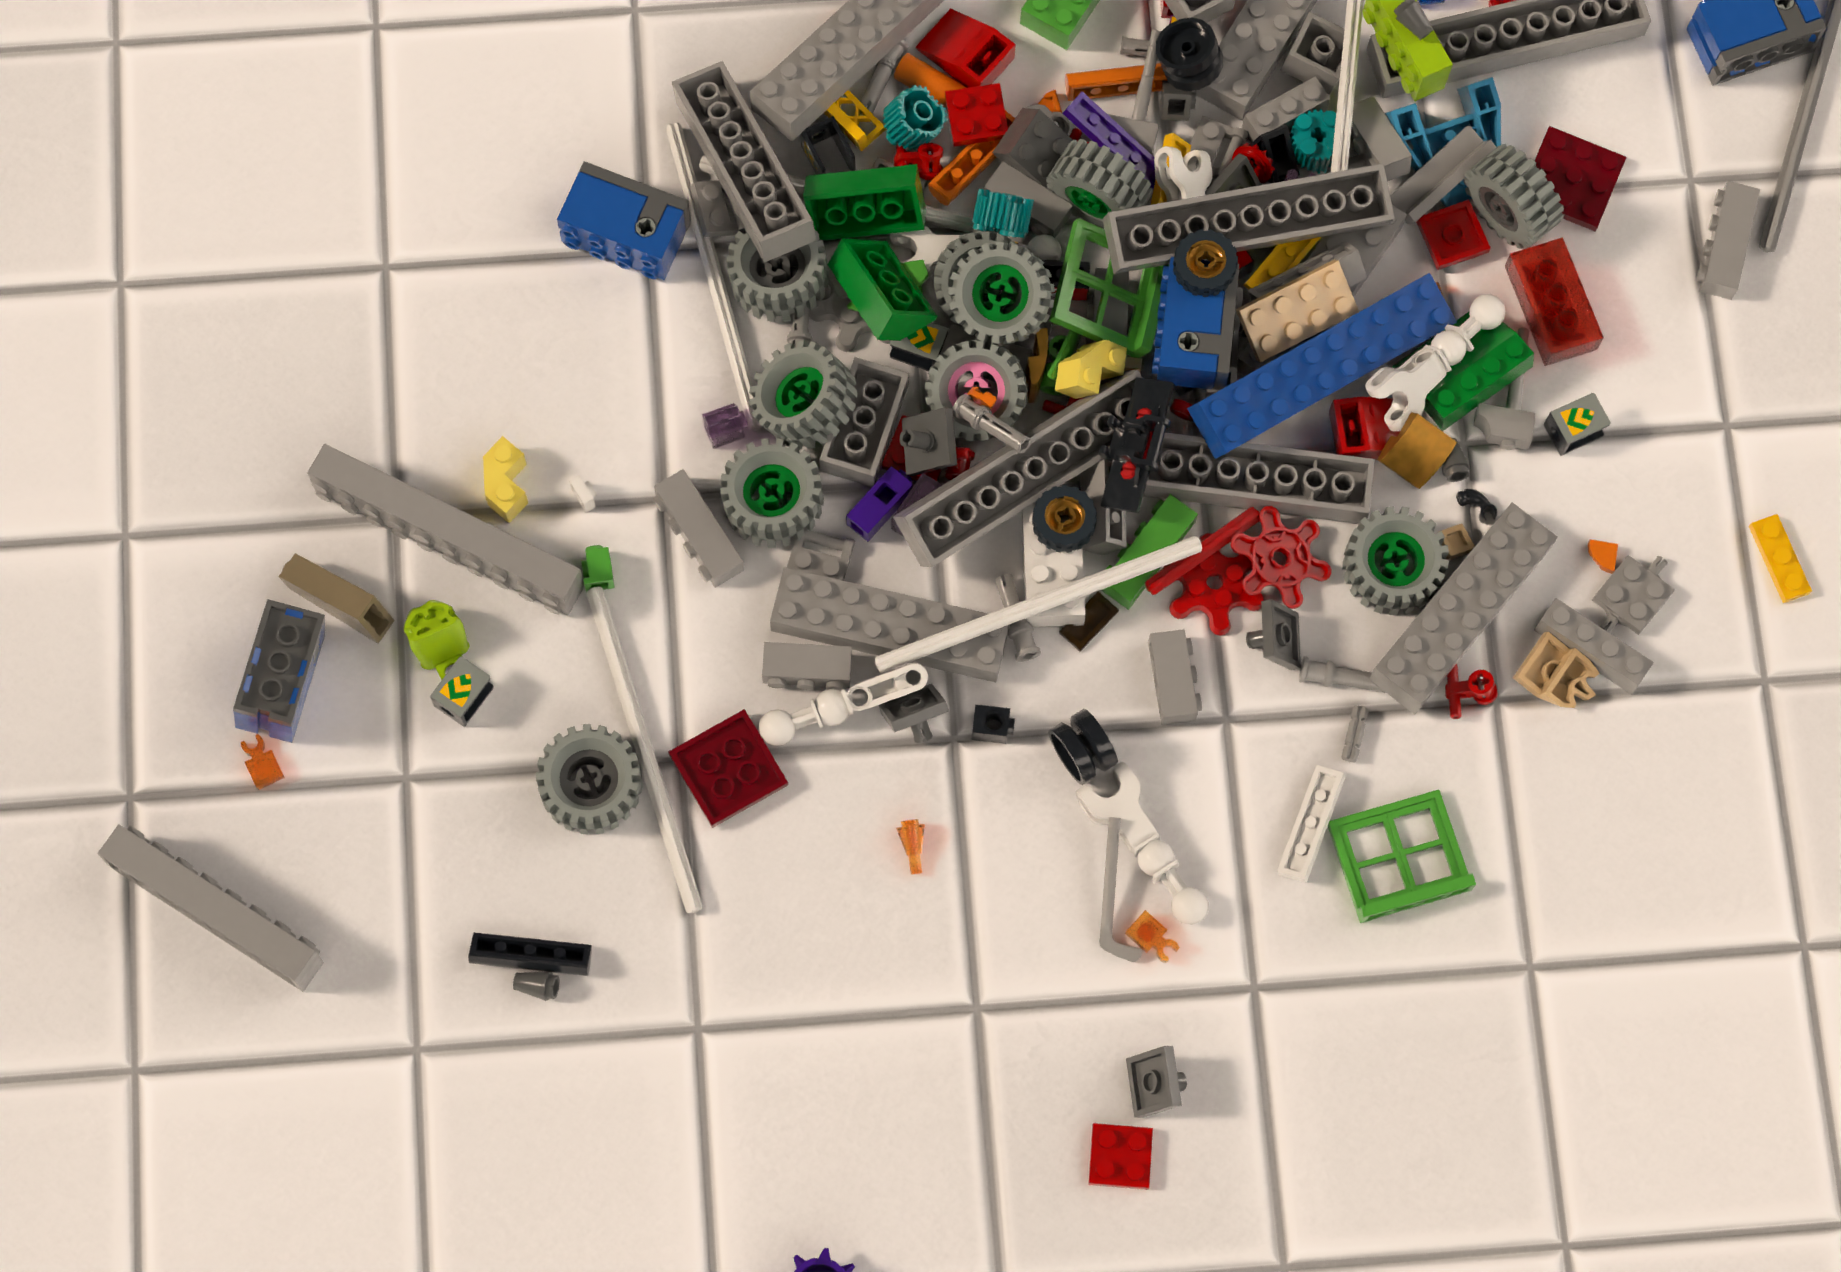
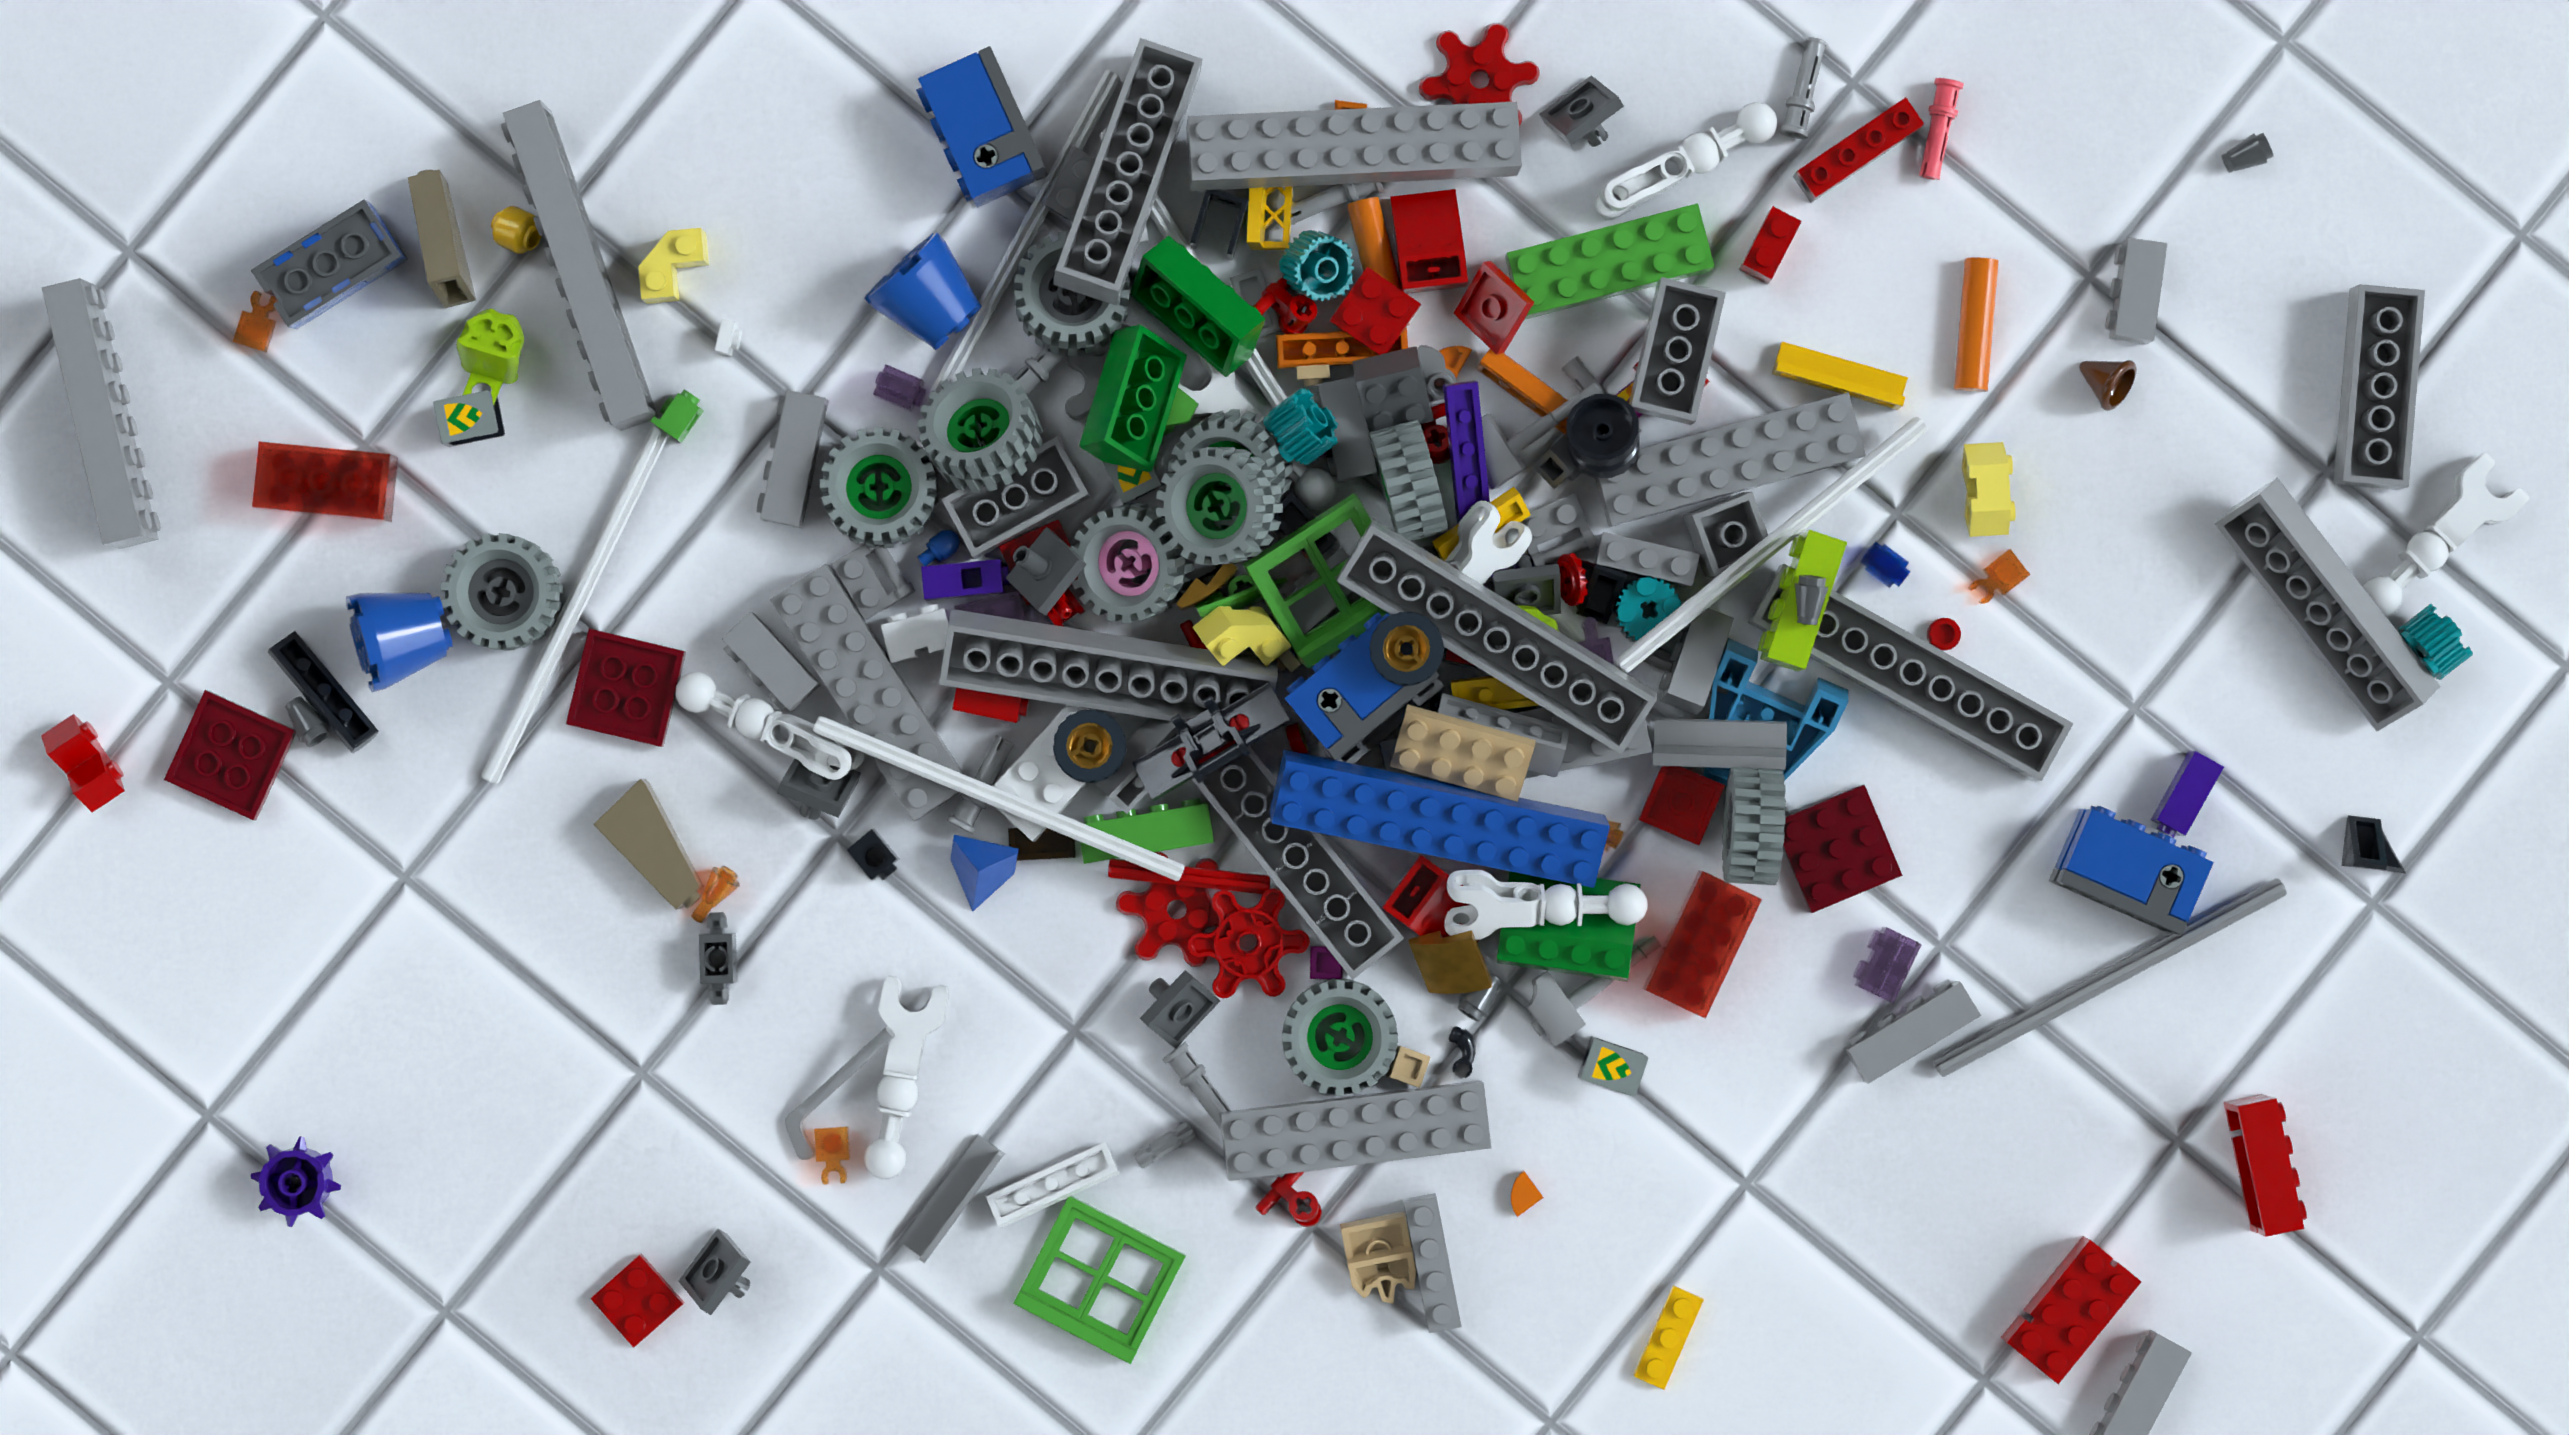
camera: 45 degrees right, 15 degrees up
(380, 549) = (515, 230): none -> yellow head
(404, 815) = (325, 481): none -> clear red brick
(422, 1151) = (88, 768): none -> red brick
(506, 1053) = (230, 755): none -> dark red plate
(544, 867) = (396, 634): none -> blue cone
(686, 346) = (926, 293): none -> blue cone
(842, 851) = (649, 842): none -> dark tan slope
(844, 499) = (940, 547): none -> blue cylinder
(886, 557) = (908, 635): none -> white brick
(934, 861) = (717, 923): none -> dark grey piece
(970, 188) = (1313, 374): none -> tan plate
(971, 559) = (991, 705): none -> red brick
(981, 418) = (1104, 595): light grey pin -> none
(982, 398) = (1122, 576): orange tile -> none
(1045, 48) = (1493, 307): none -> red plate
(1066, 669) = (981, 867): none -> blue slope
(1083, 746) = (928, 949): black wheel -> none
(1174, 676) = (1062, 958): light grey brick -> none
(1257, 893) = (952, 1197): none -> light grey panel
(1338, 532) = (1323, 964): none -> magenta tile
(1633, 594) = (1512, 1250): light grey plate -> none
(1673, 215) = (1886, 964): none -> clear purple brick

